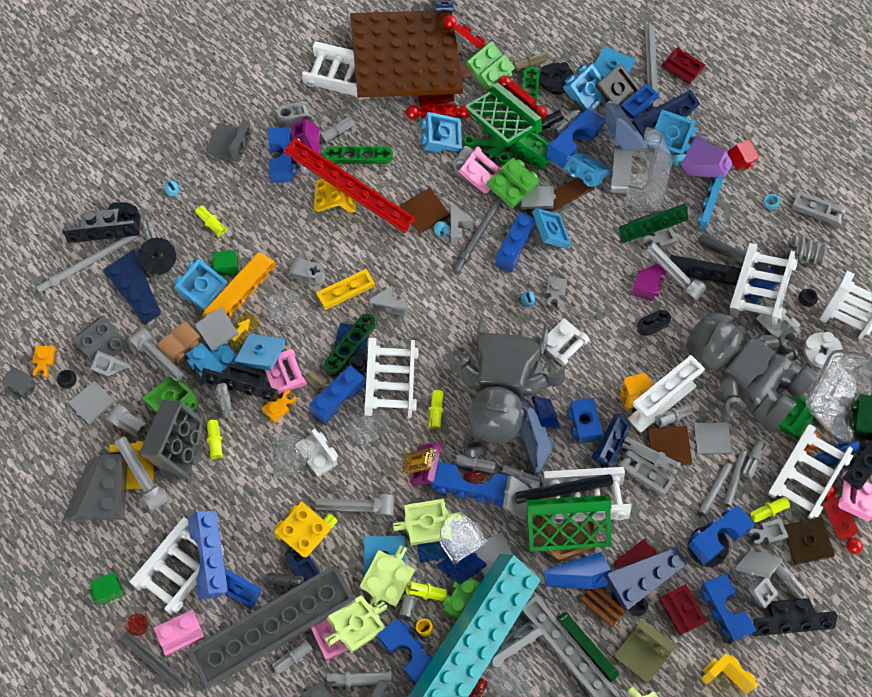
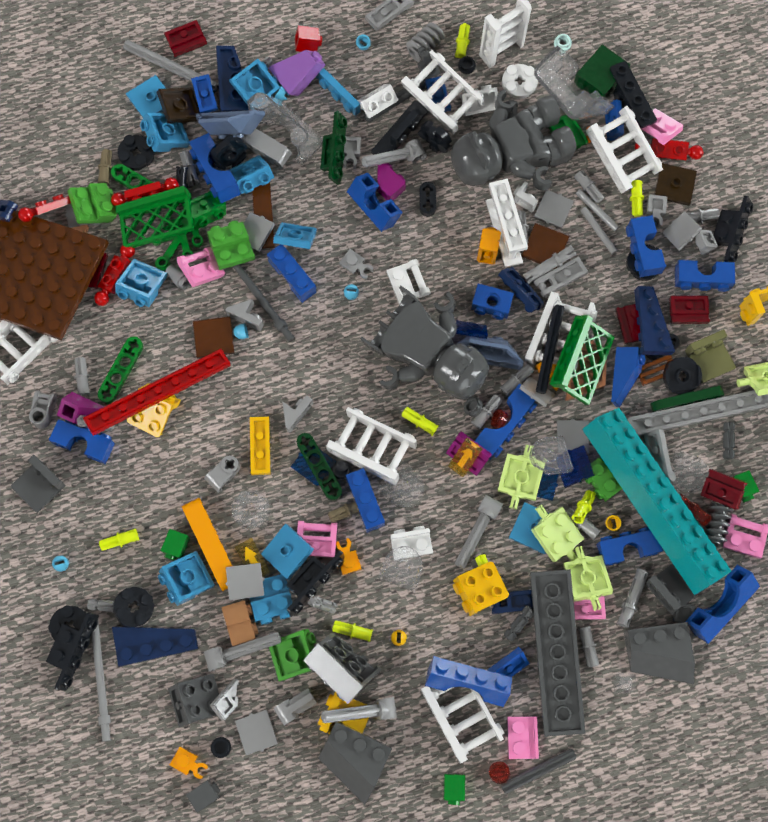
camera: 65 degrees left, 10 degrees up
(227, 483) = (403, 637): none -> yellow hinge
(599, 135) = (221, 155): none -> black plate
(611, 618) = (674, 368): none -> black plate
(625, 265) = (363, 192): none -> blue arch
(705, 404) = (524, 199): none -> white bracket
(716, 297) = (436, 137): none -> black plate
(721, 237) = (378, 100): none -> white bracket
(826, 284) = (462, 41): none -> neon yellow axle

